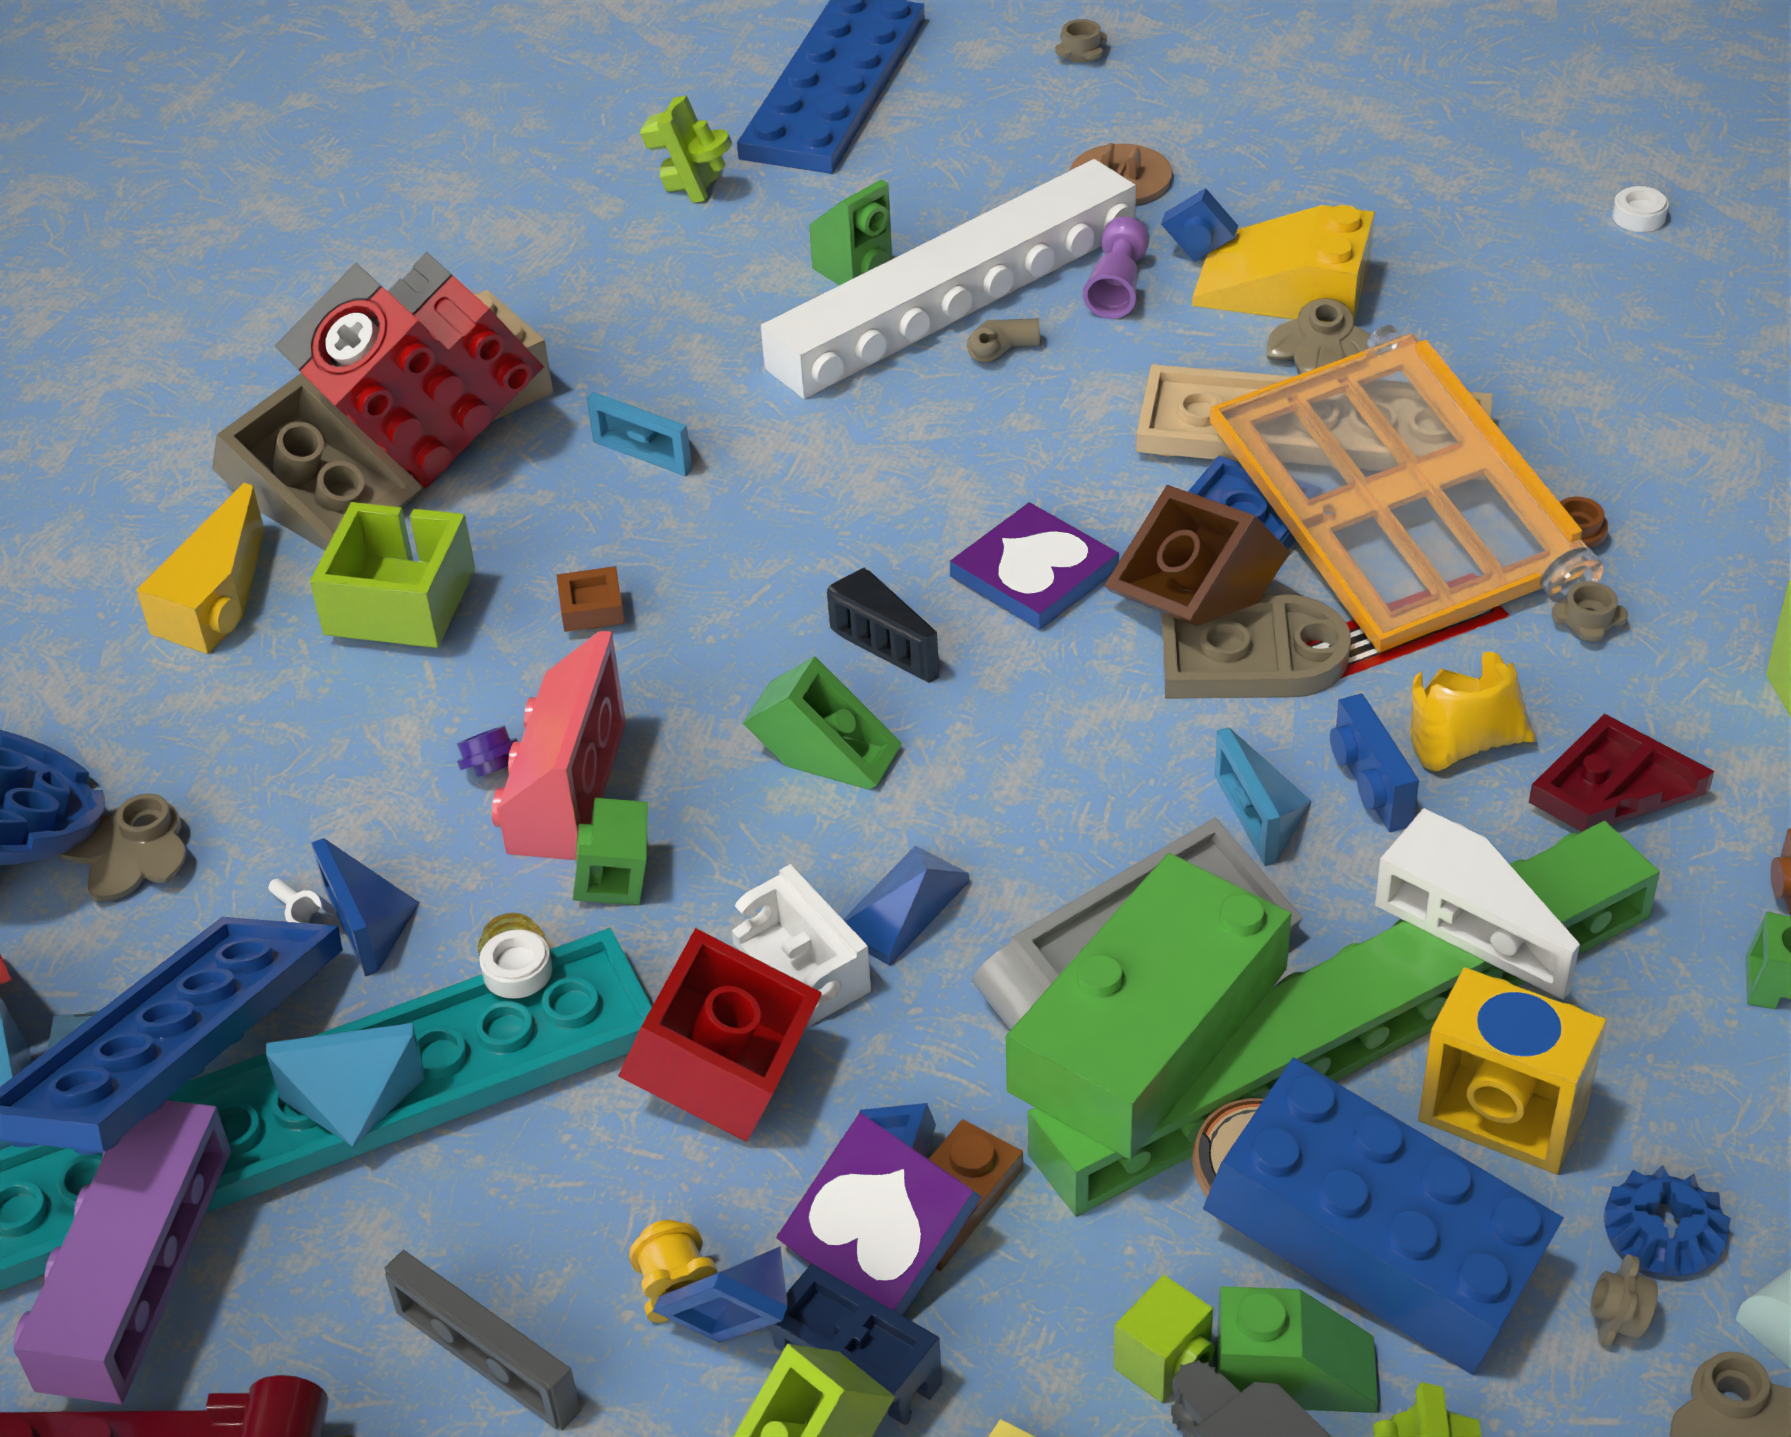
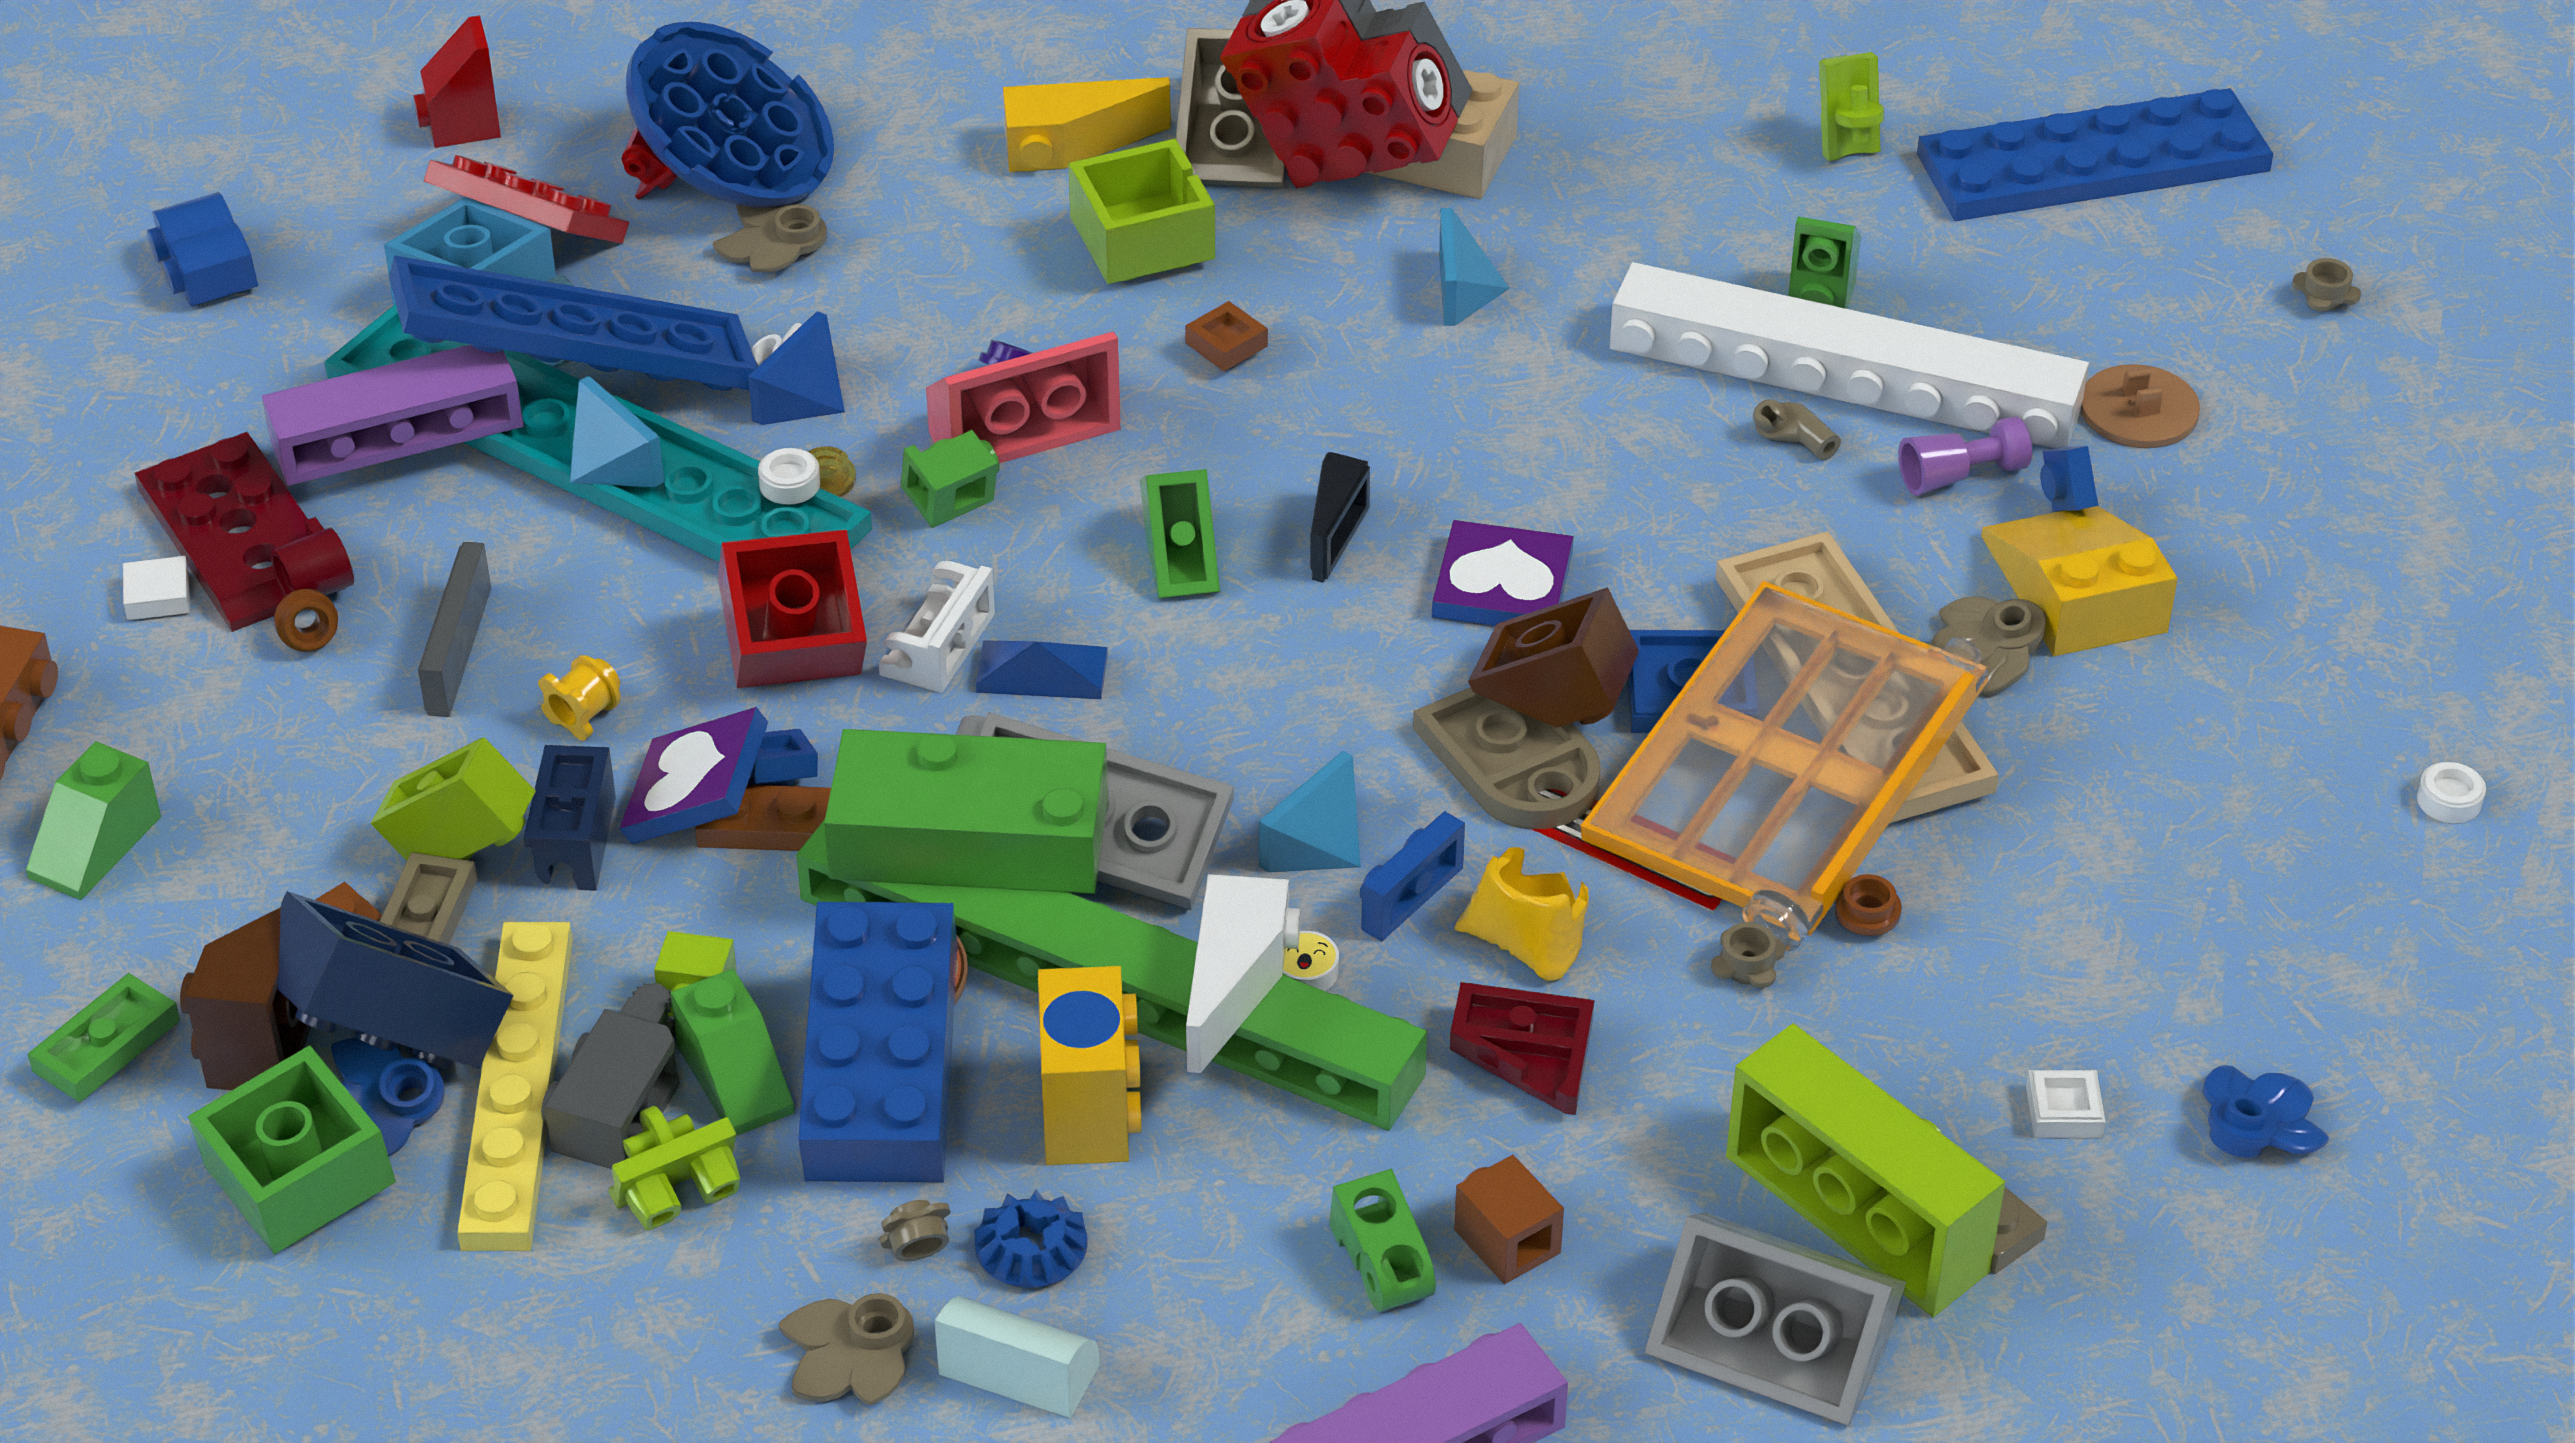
camera: 55 degrees right, 0 degrees up
(731, 1300) = (552, 719): blue slope -> none

